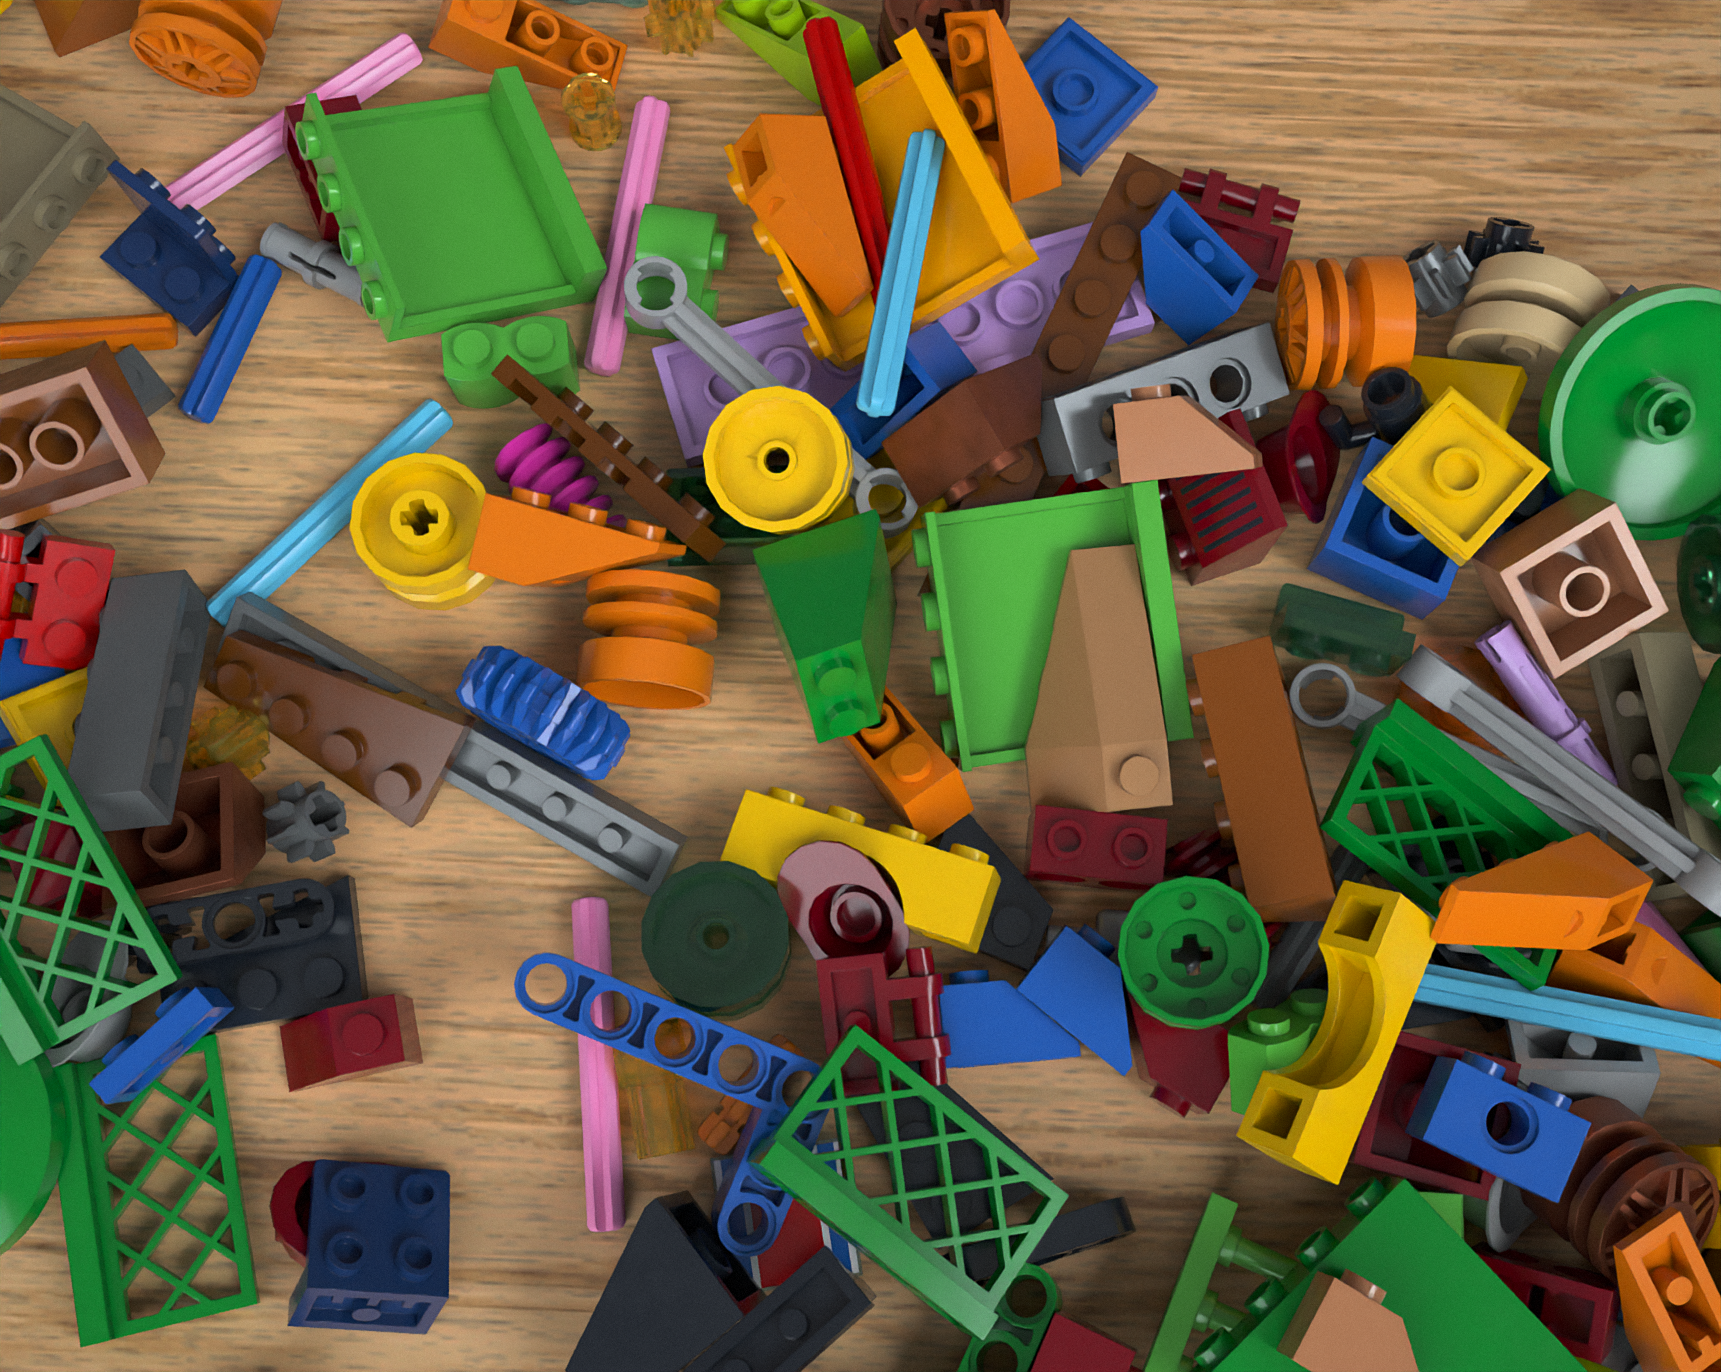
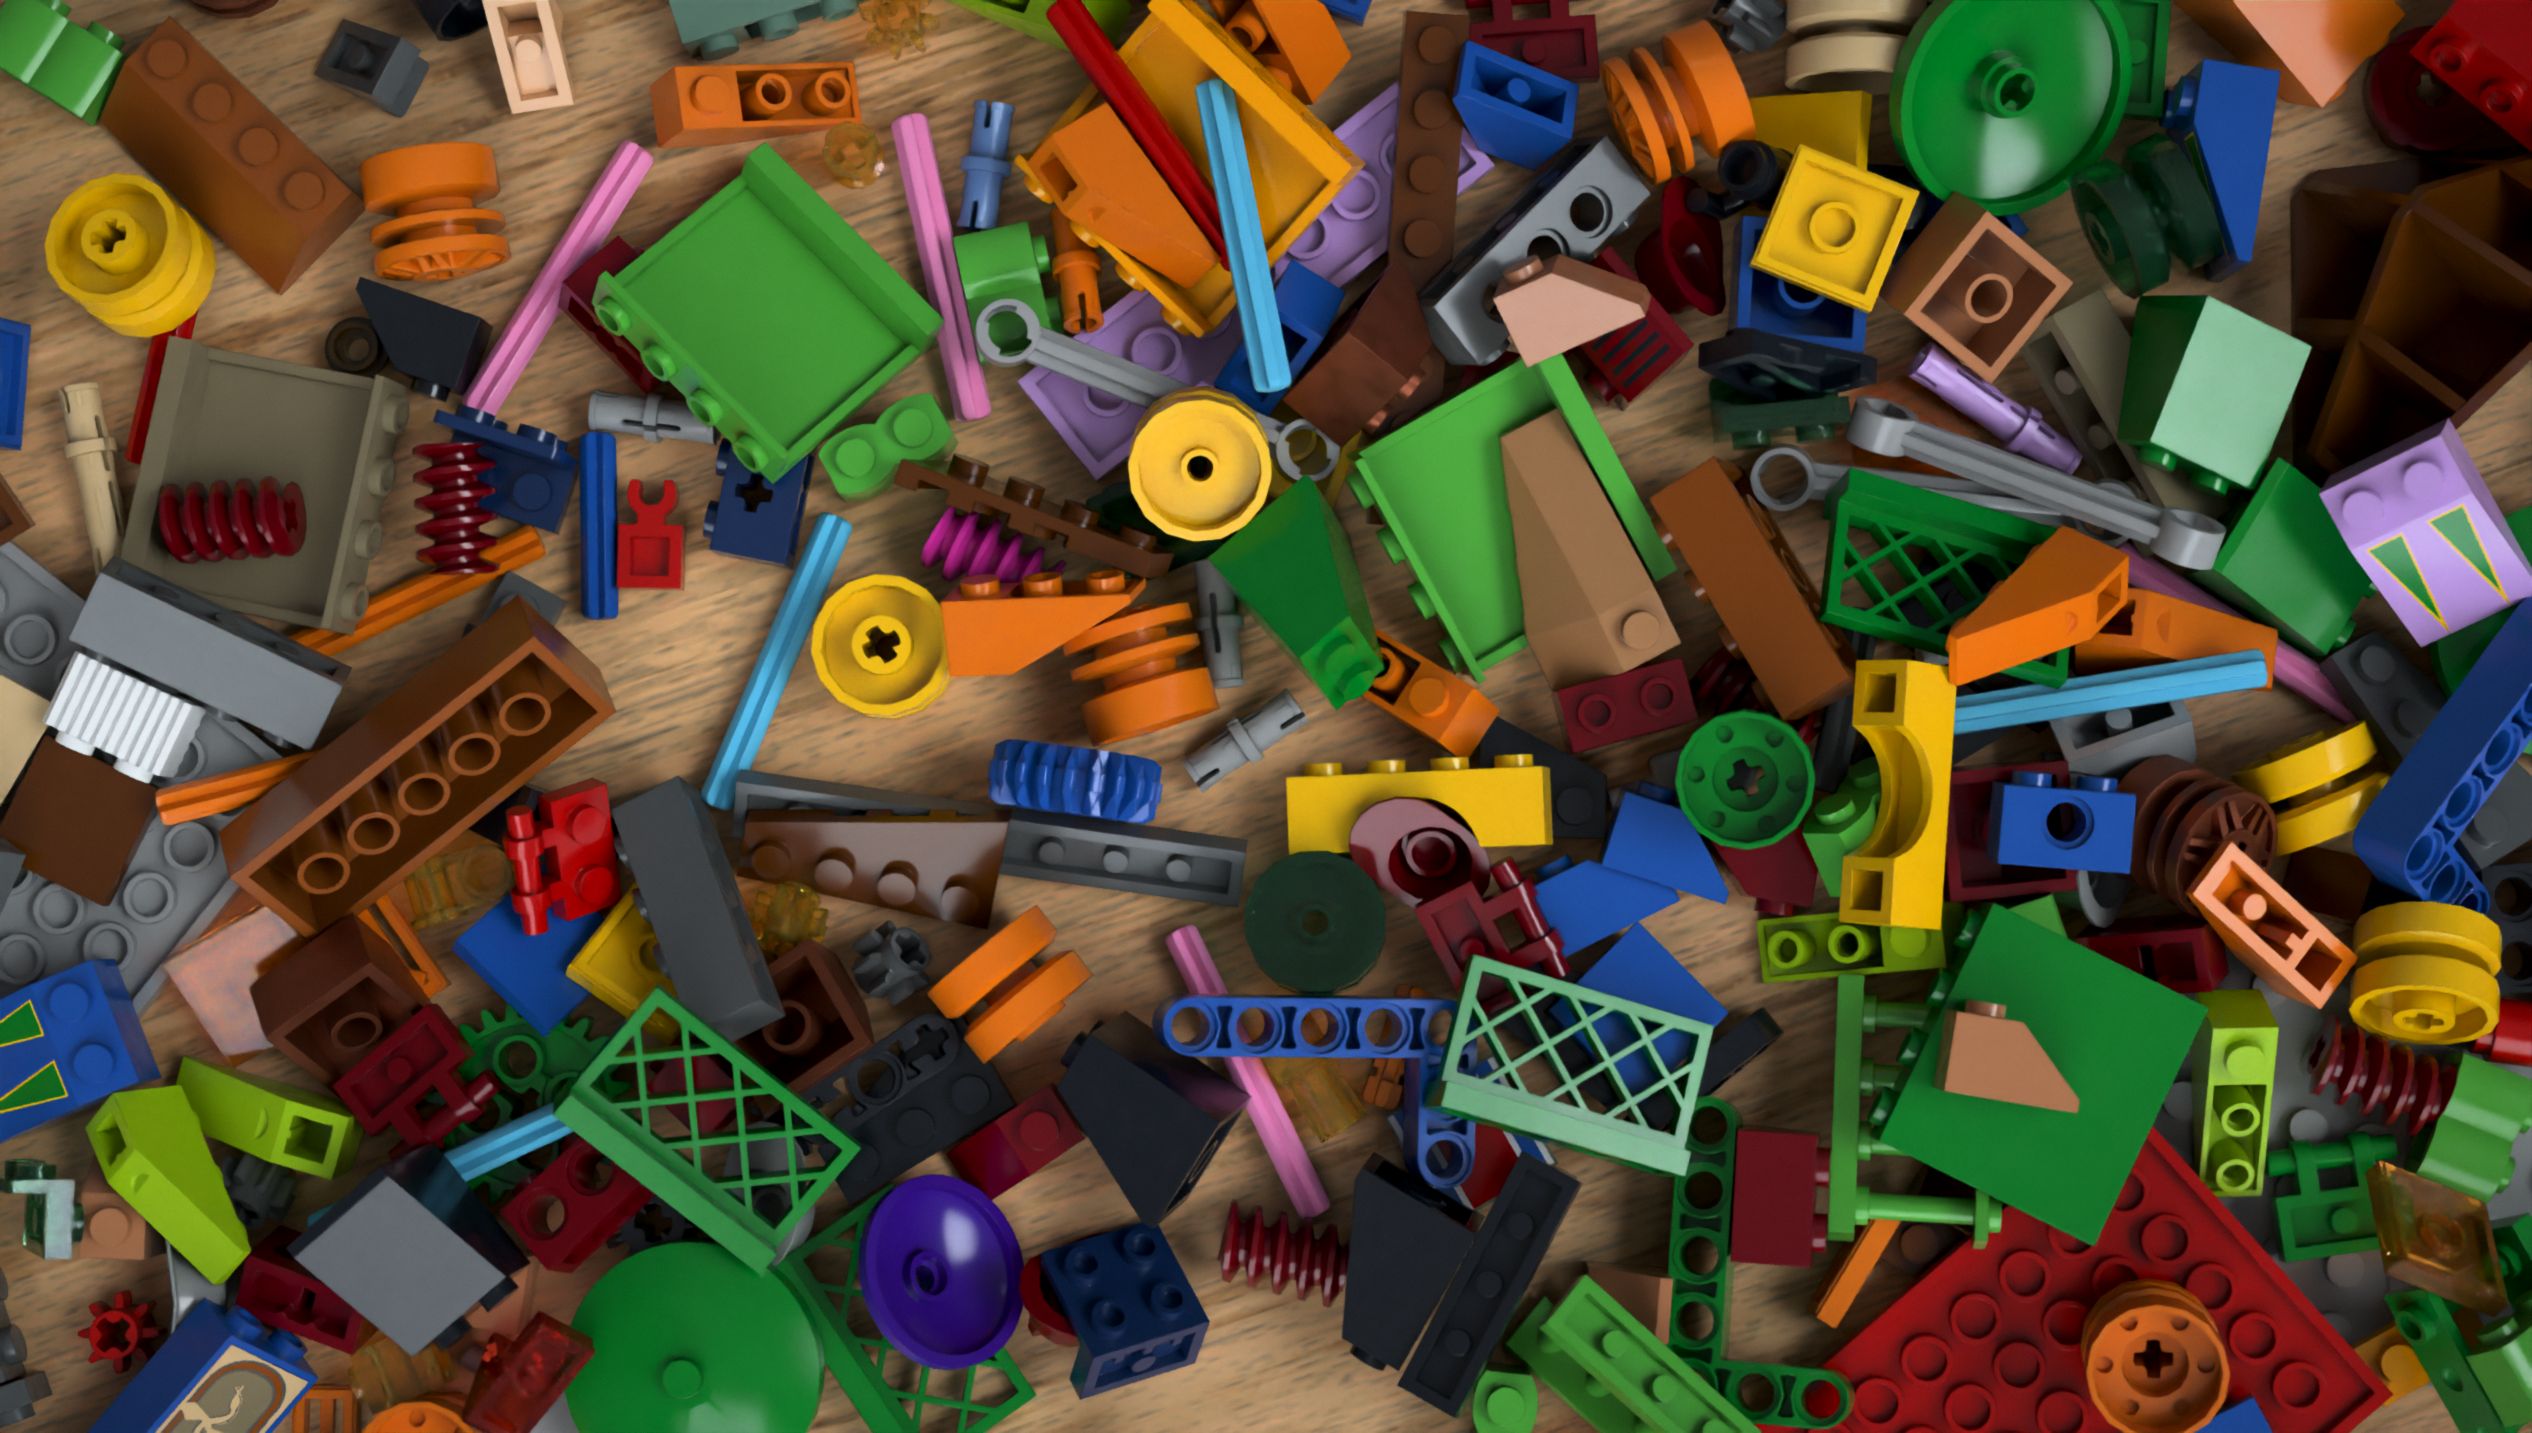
camera: 20 degrees left, 10 degrees up
(93, 102) = (342, 337): none -> dark brown plate
(98, 259) = (455, 508): none -> dark red piece
(141, 1060) = (843, 1231): blue plate -> none
(155, 123) = (426, 339): none -> black slope
(245, 1128) = (964, 1269): none -> dark purple dish
(267, 373) = (651, 551): none -> red plate
(374, 379) = (774, 529): none -> dark blue brick
(401, 881) = (1010, 984): none -> orange wheel
(476, 1062) = (1148, 1112): none -> black slope
(550, 1255) = (1284, 1254): none -> dark red piece
(704, 160) = (985, 165): none -> medium blue pin
(724, 745) = (1244, 740): none -> light grey pin
(742, 634) = (1218, 627): none -> light grey pin
(743, 277) = (1077, 273): none -> orange pin
(1023, 1119) = (1646, 974): none -> blue tile
(1217, 1161) = (1824, 947): none -> lime slope
(1365, 581) = (1783, 367): none -> black wing

